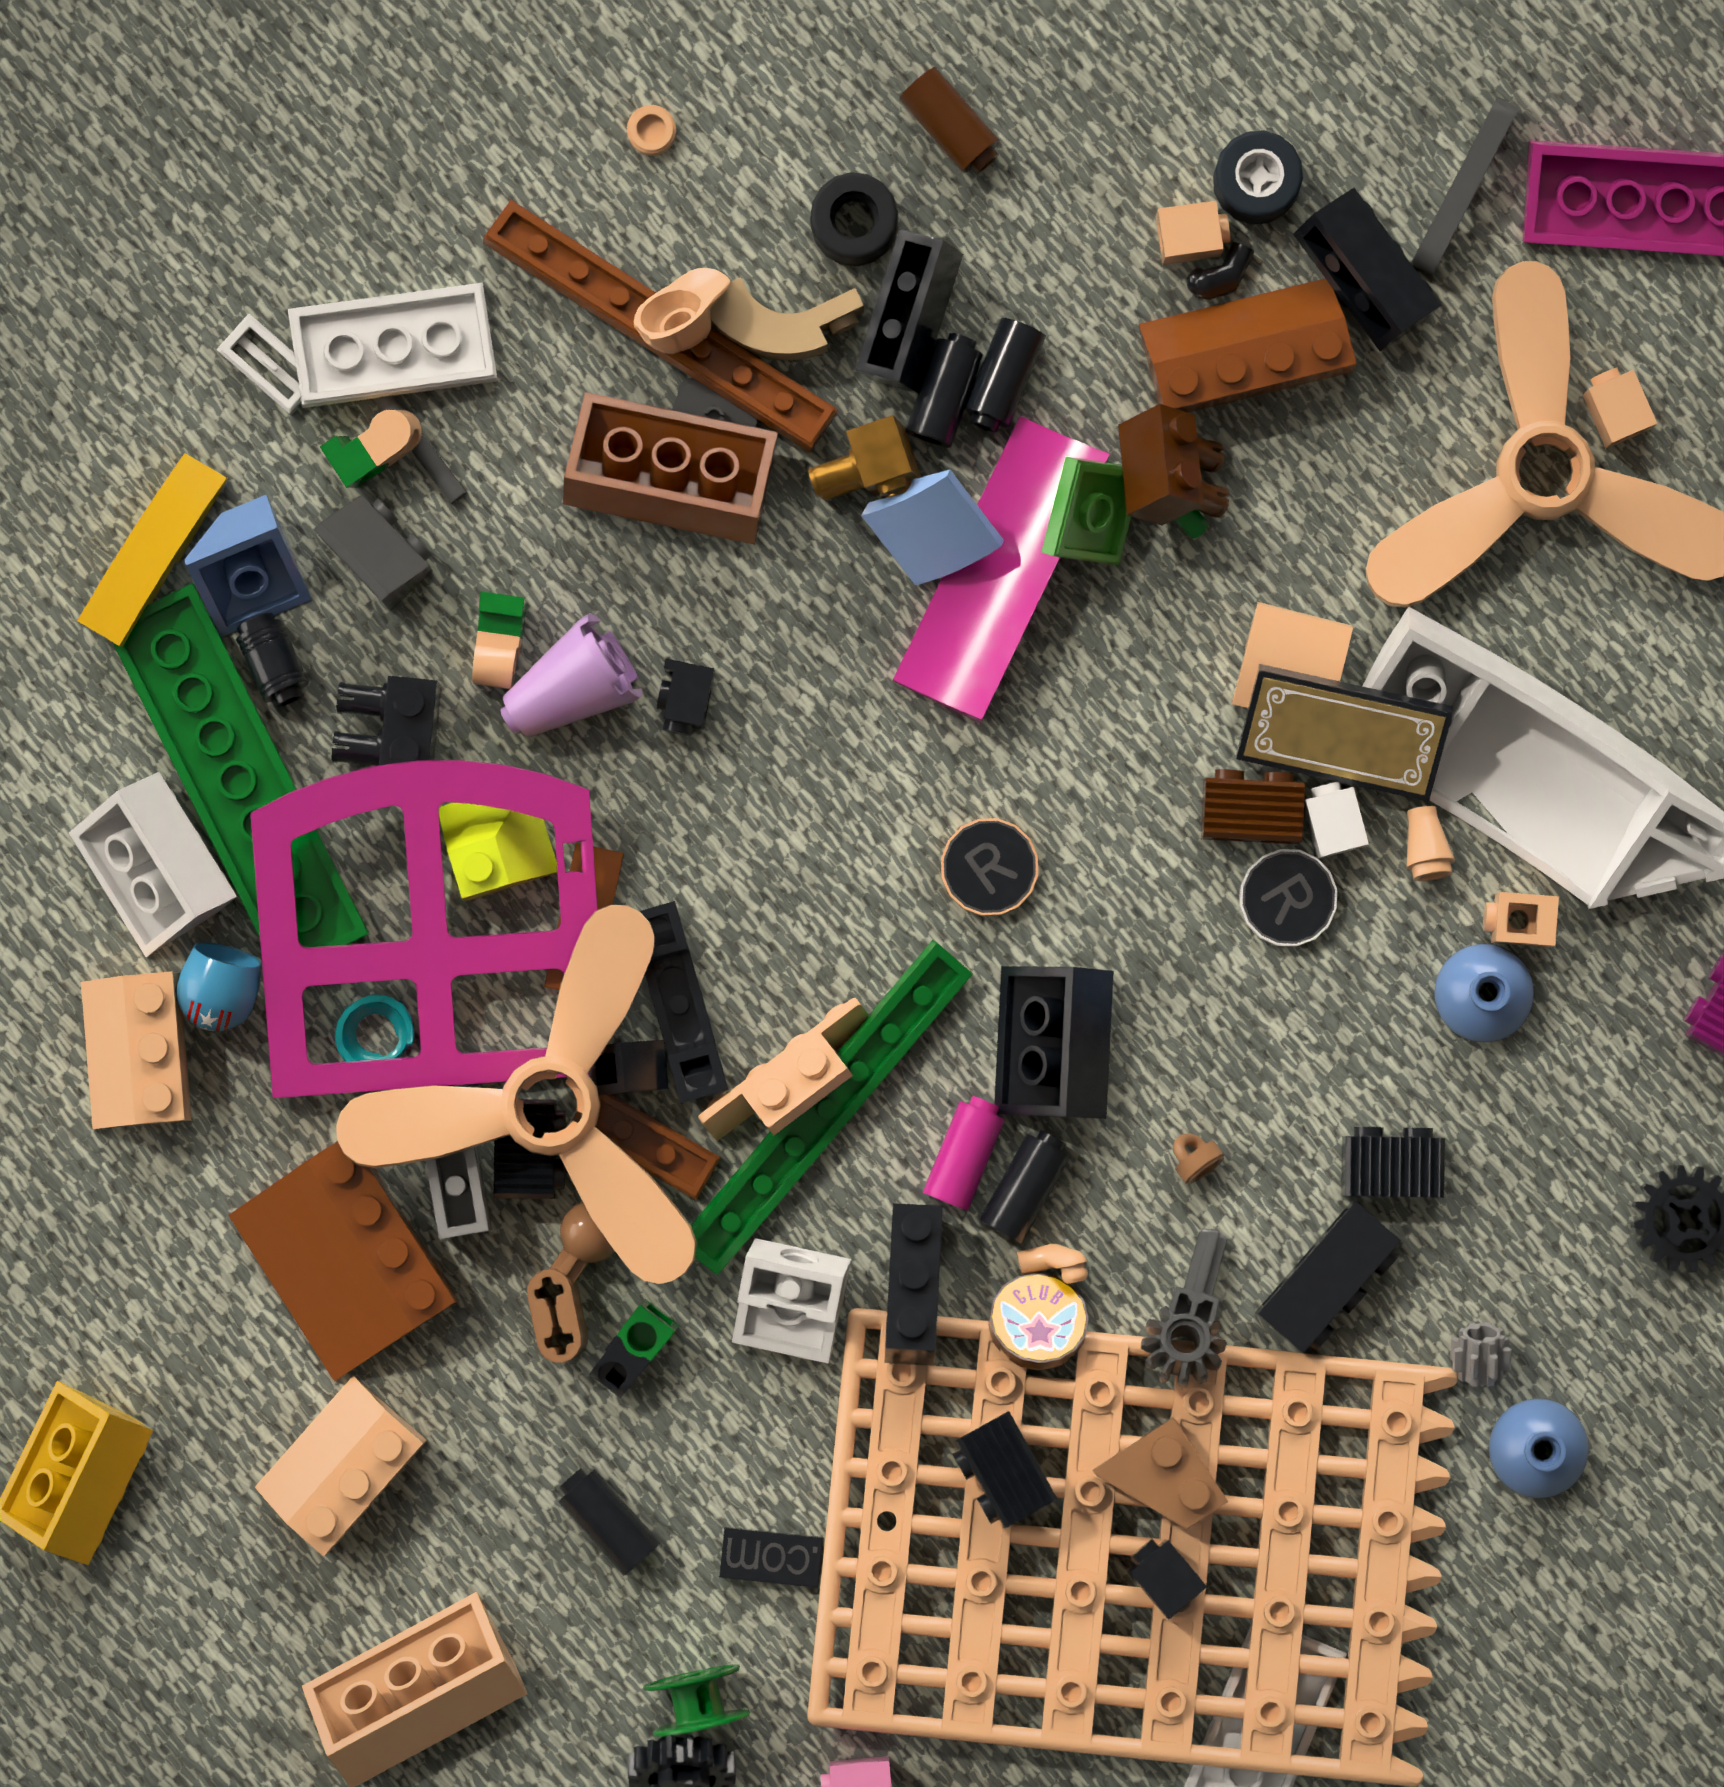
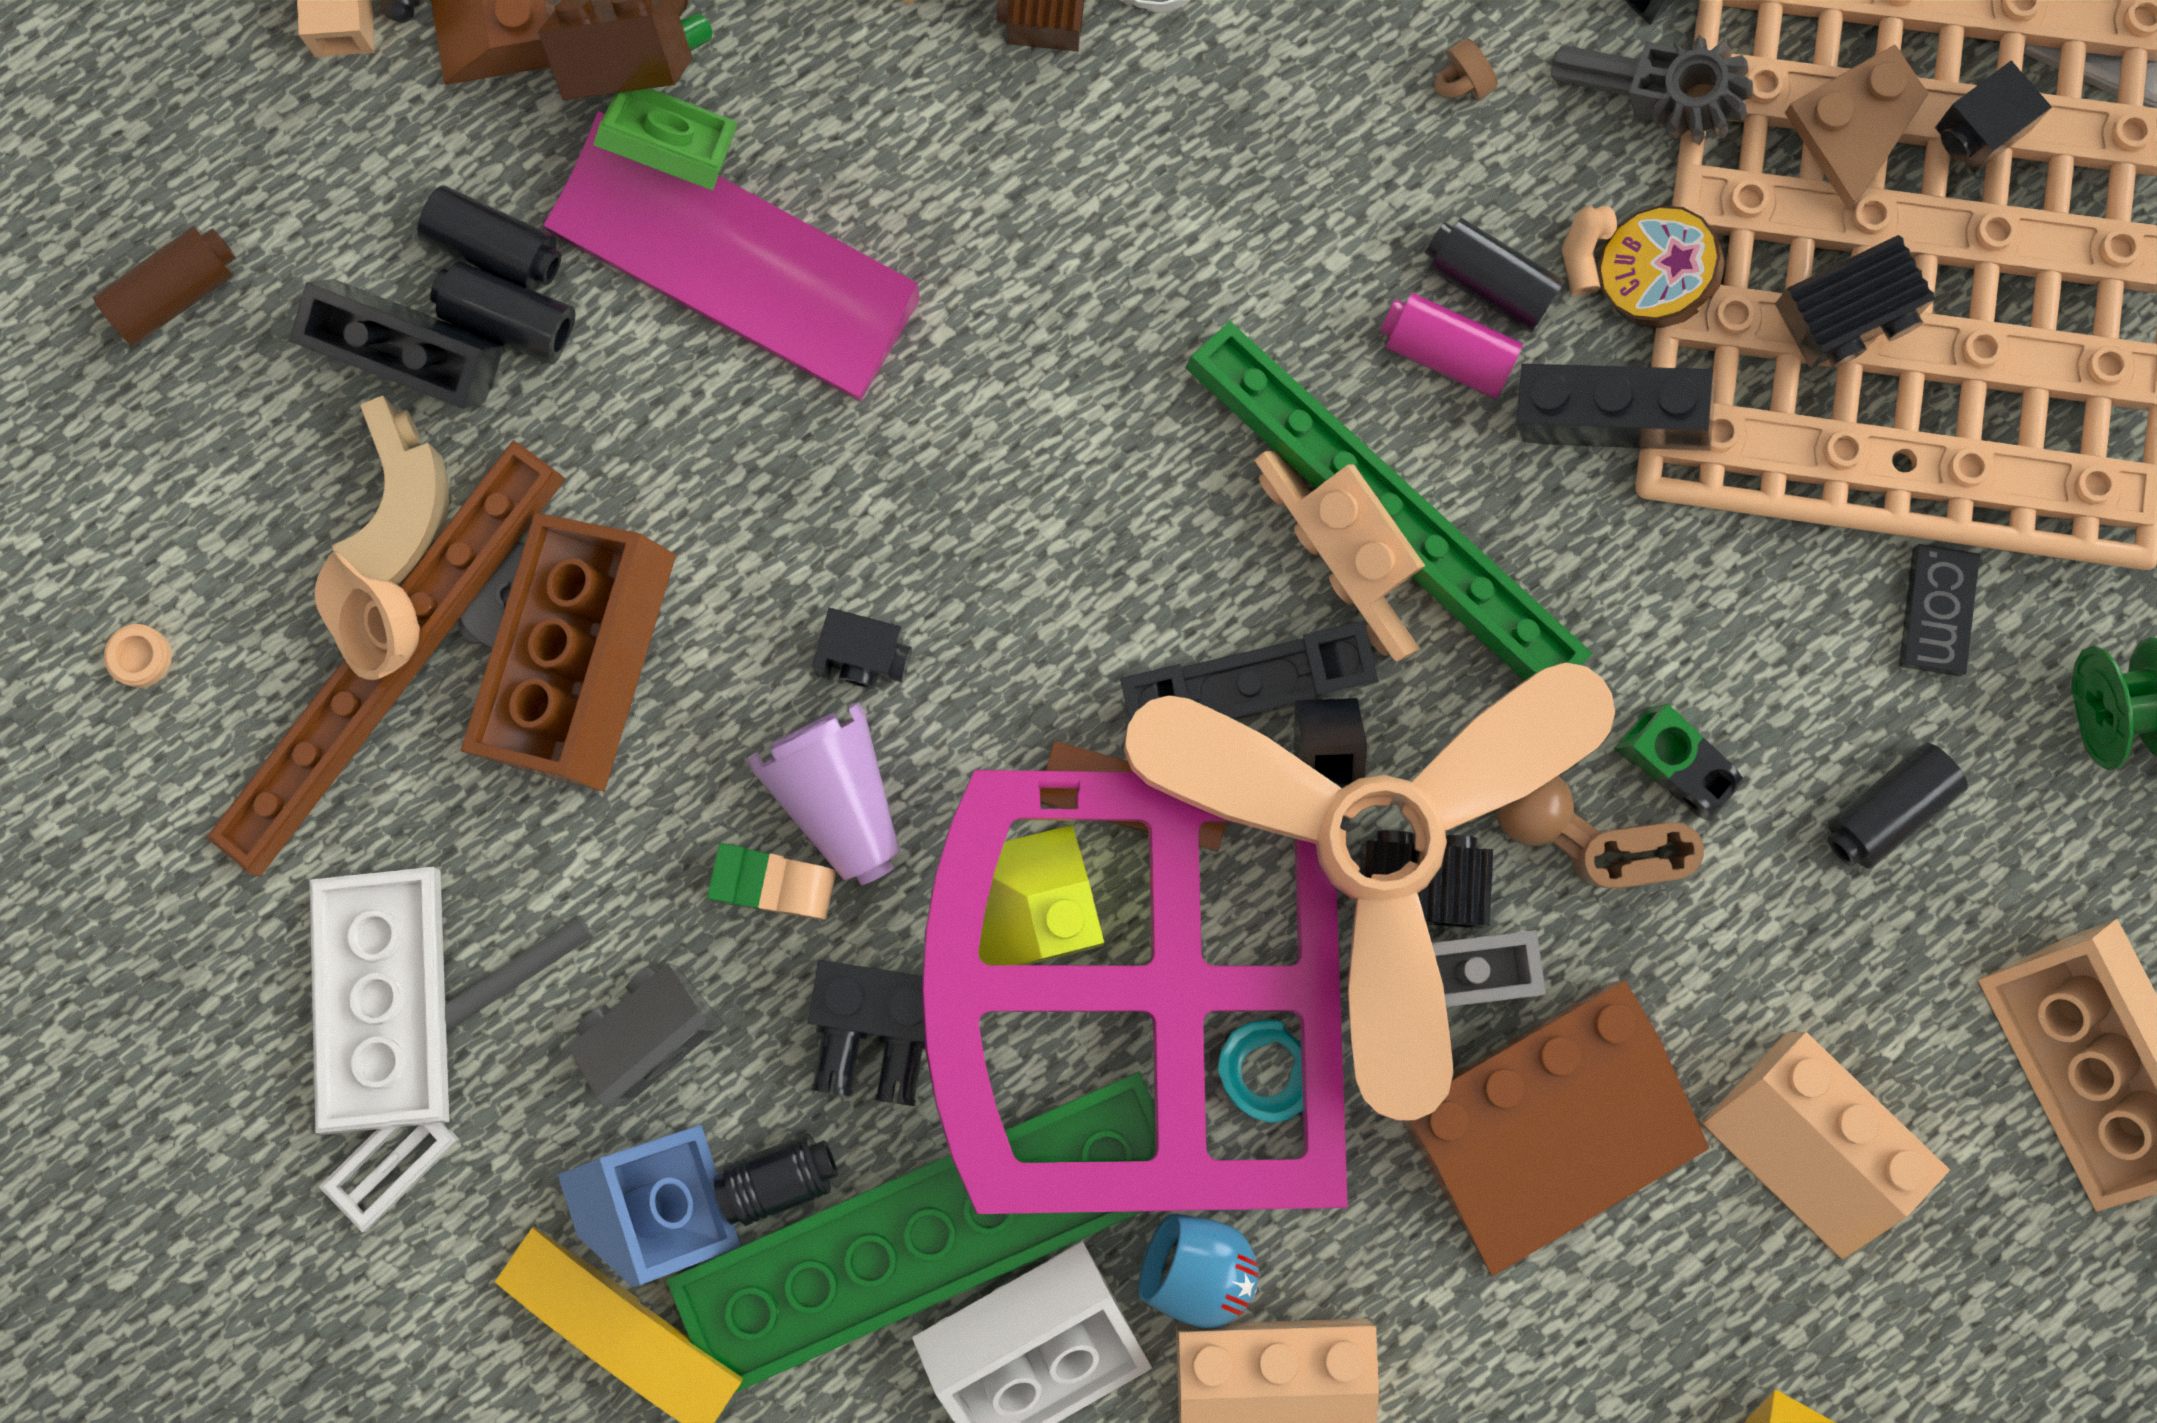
camera: 90 degrees left, 5 degrees down
(384, 443) = (516, 1035): leg -> none
(655, 1146) = (1427, 722): dark orange tile -> none
(790, 1300) = (1626, 561): white brick -> none
(861, 189) = (307, 429): black tyre -> none
(878, 461) = (585, 386): pearl gold brick -> none
(932, 527) = (670, 324): light blue slope -> none
(989, 867) = (1098, 297): black tile -> none
(1054, 1041) = (1319, 230): black slope -> none

